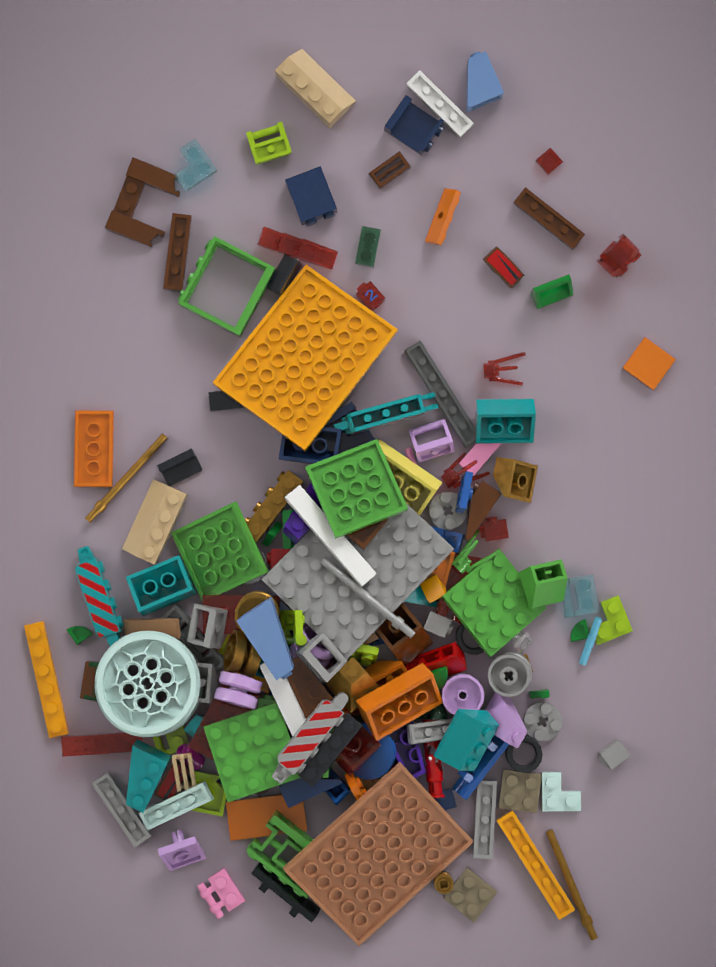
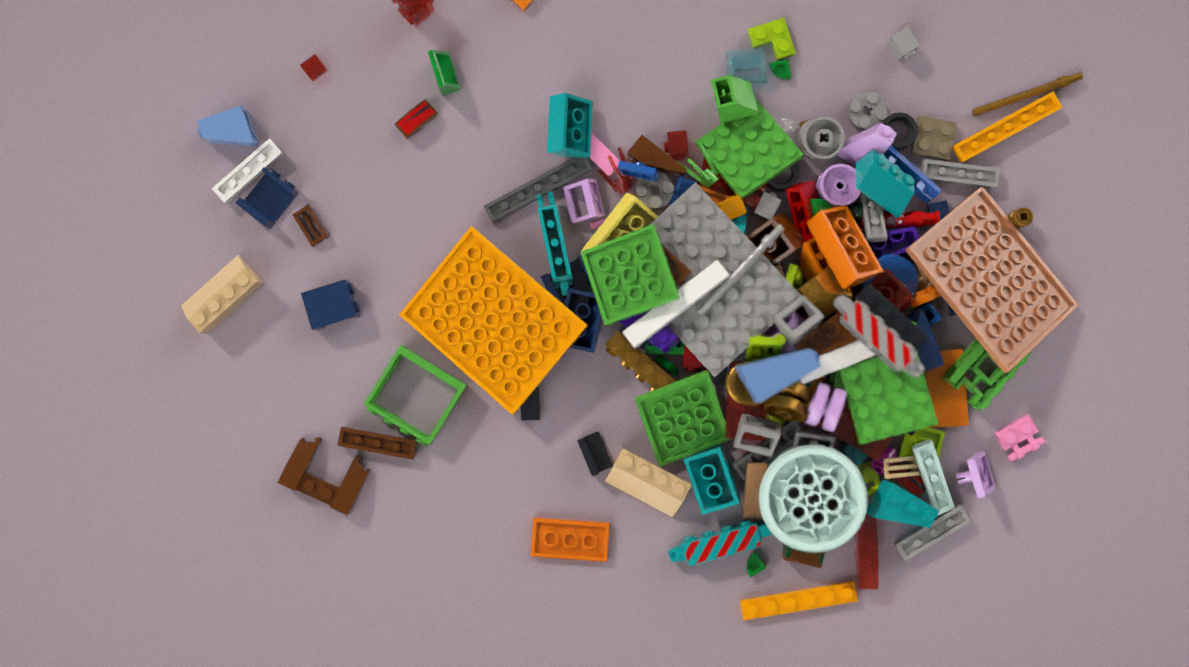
camera: 85 degrees left, 0 degrees up
(100, 506) = (627, 534): pearl gold bar -> none
(199, 166) = (291, 415): clear light blue plate -> none
(271, 148) = (279, 341): lime plate -> none
(284, 274) = (408, 337): black panel -> none
(297, 248) = (382, 322): clear red slope -> none
(299, 904) = (1035, 362): black hinge -> none
(367, 246) = (386, 251): clear green plate -> none
(369, 295) = (435, 252): clear red brick -> none
(443, 216) = (361, 175): orange tile -> none
(470, 894) = (1032, 191): dark tan plate -> none
(492, 369) = (518, 137): clear red plant -> none
(515, 478) = (627, 121): pearl gold slope -> none
(541, 693) = (839, 108): green tile -> none
(548, 218) = (370, 71): reddish brown plate -> none
(553, 798) = (943, 103): light aqua plate -> none
(590, 640) = (791, 58): medium azure piece -> none

